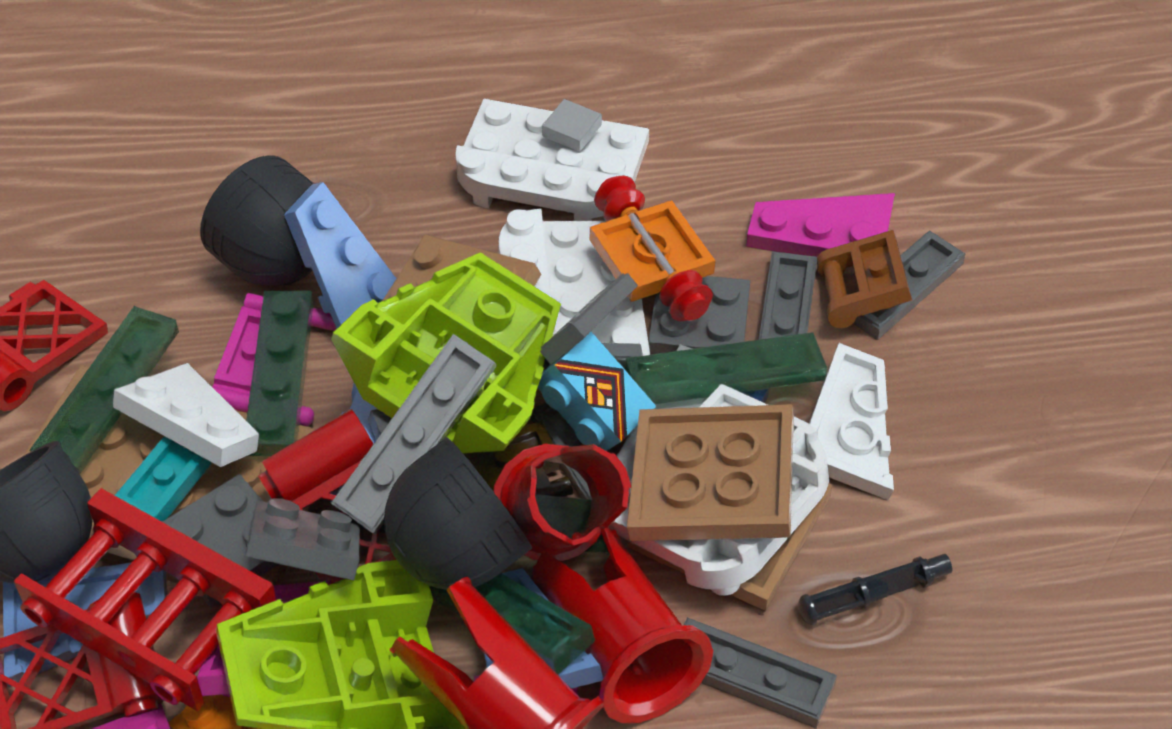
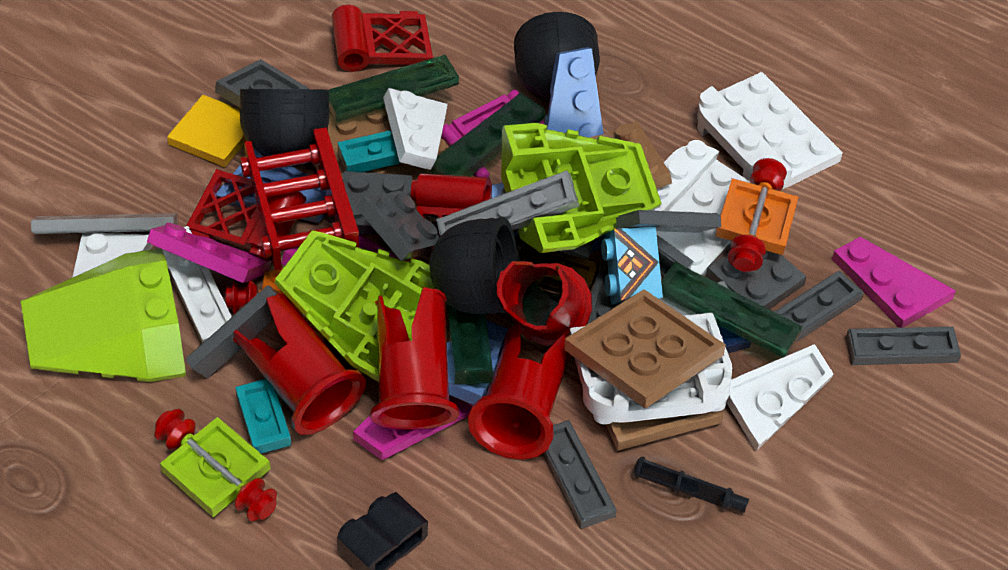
camera: 40 degrees right, 0 degrees up
(571, 125) = (791, 118): light grey tile -> none
(878, 276) = (879, 324): dark orange plate -> none

